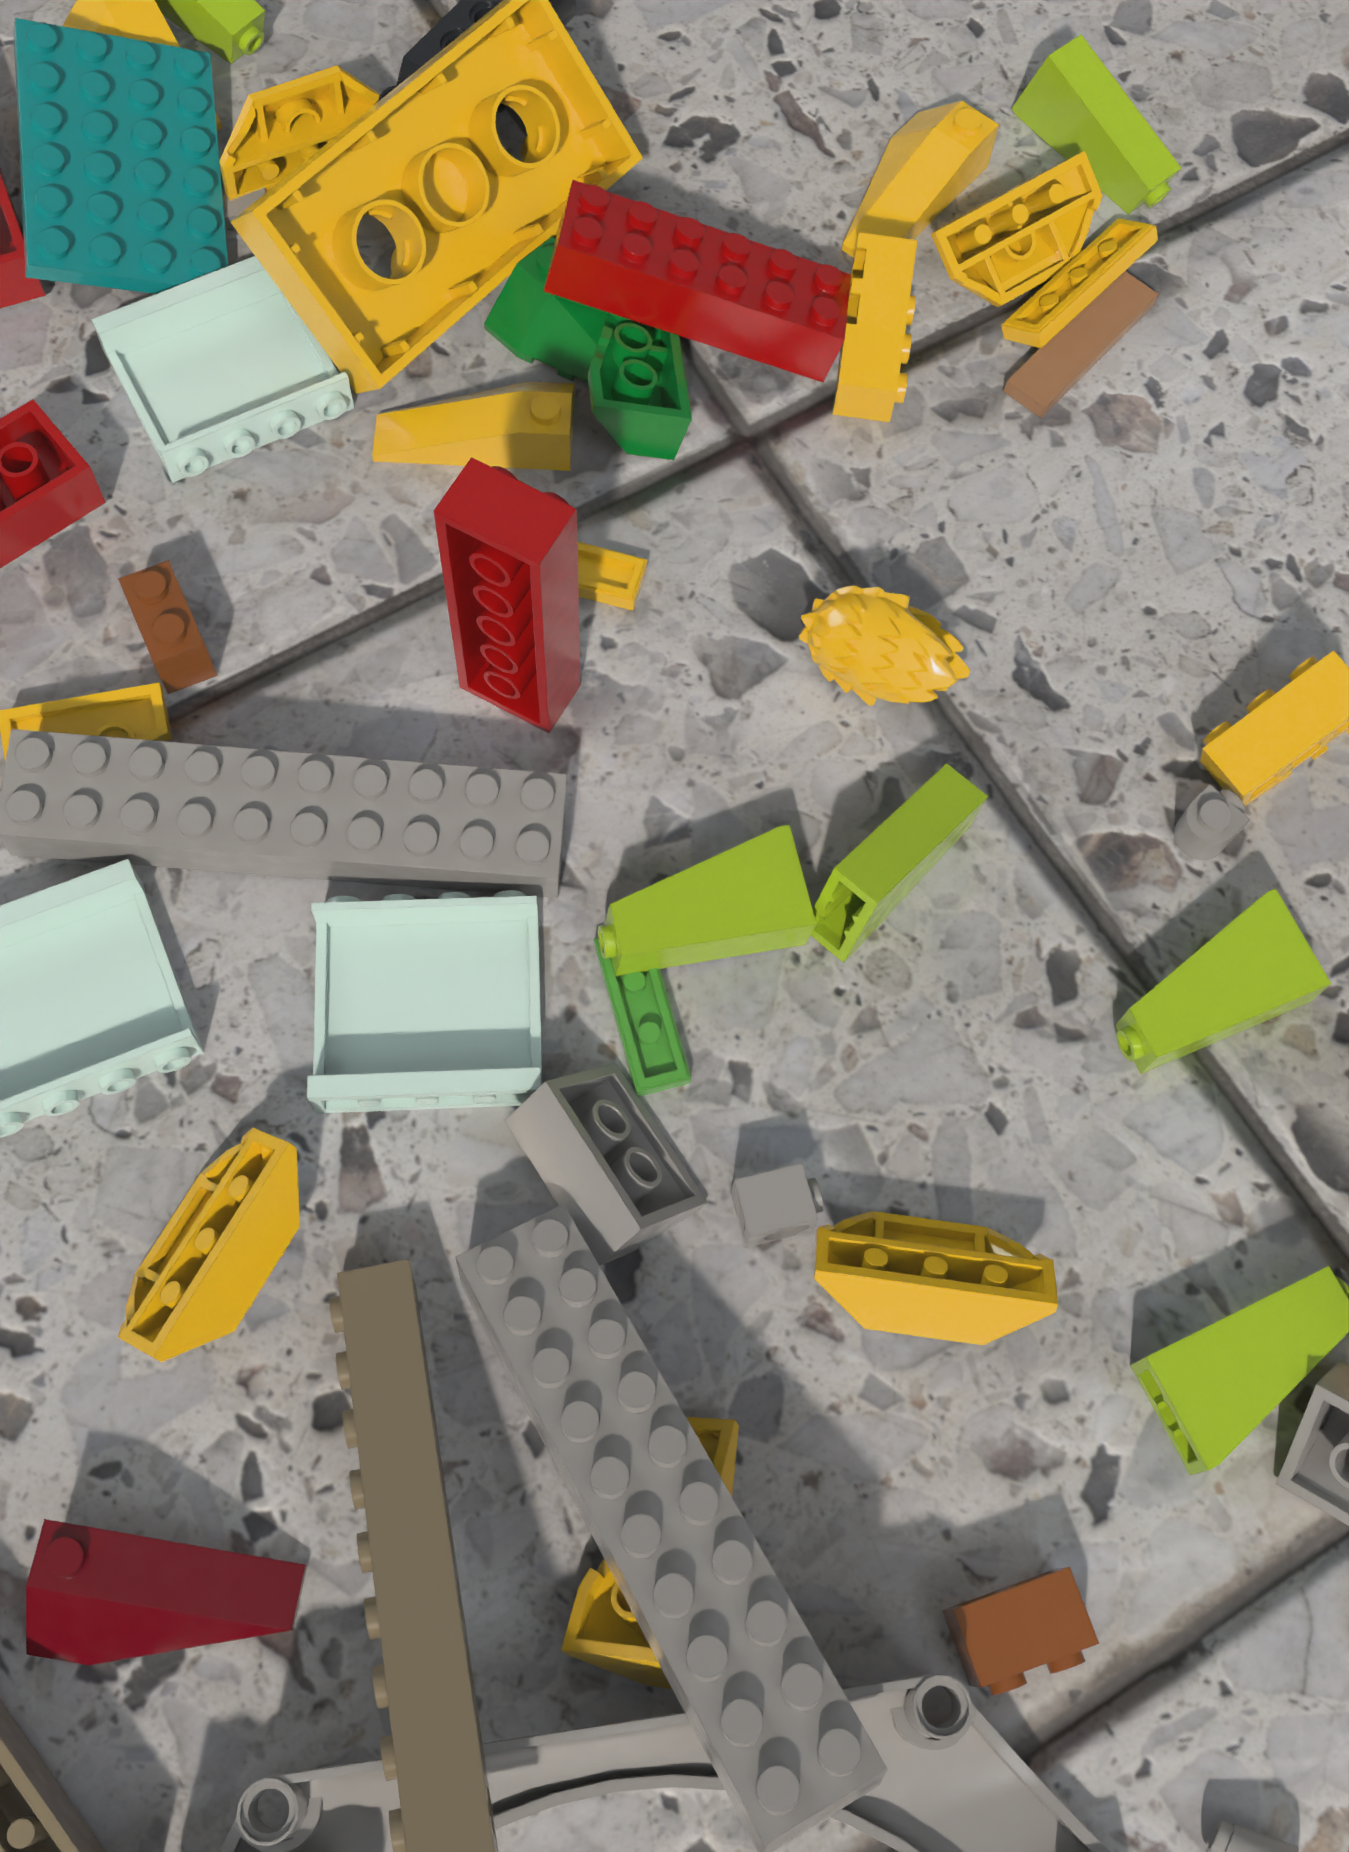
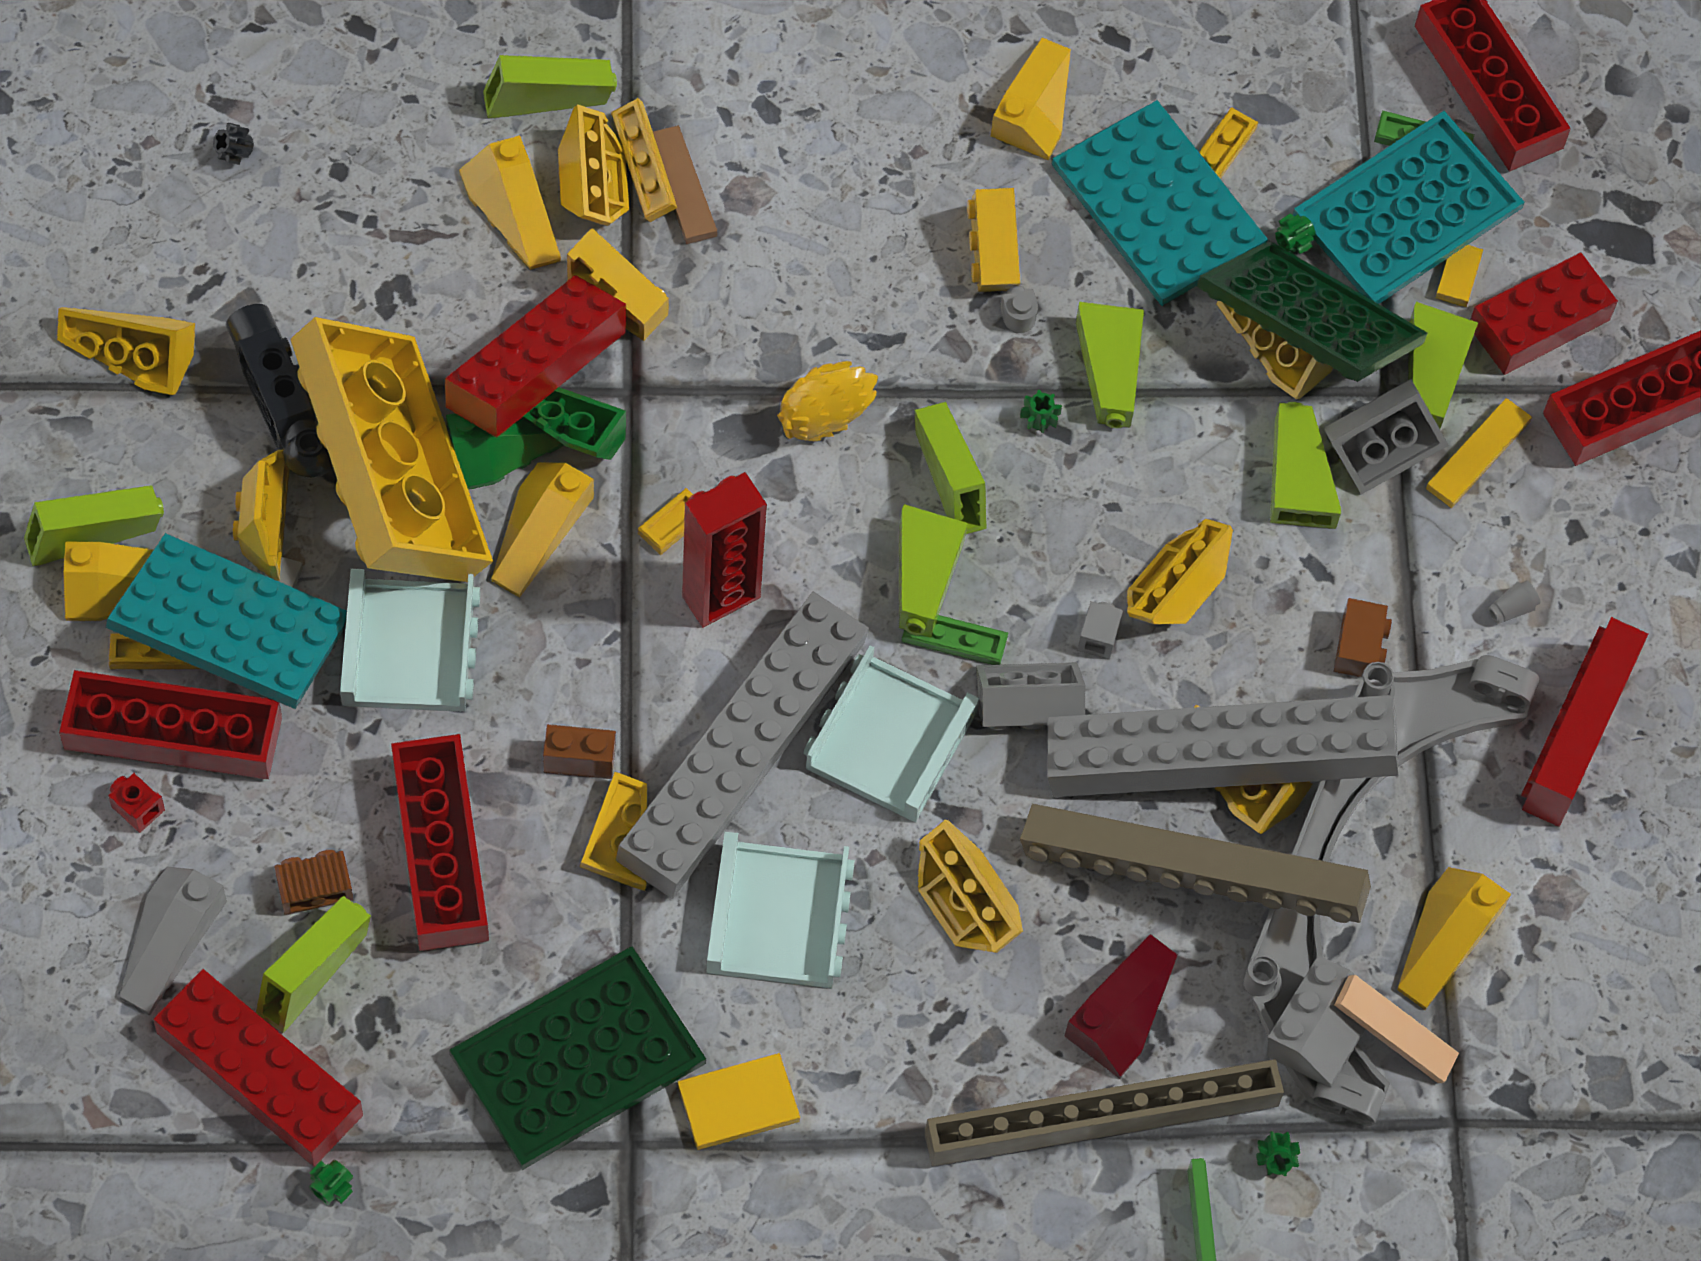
camera: 60 degrees left, 5 degrees down
(1070, 922) = (1040, 411): none -> green gear

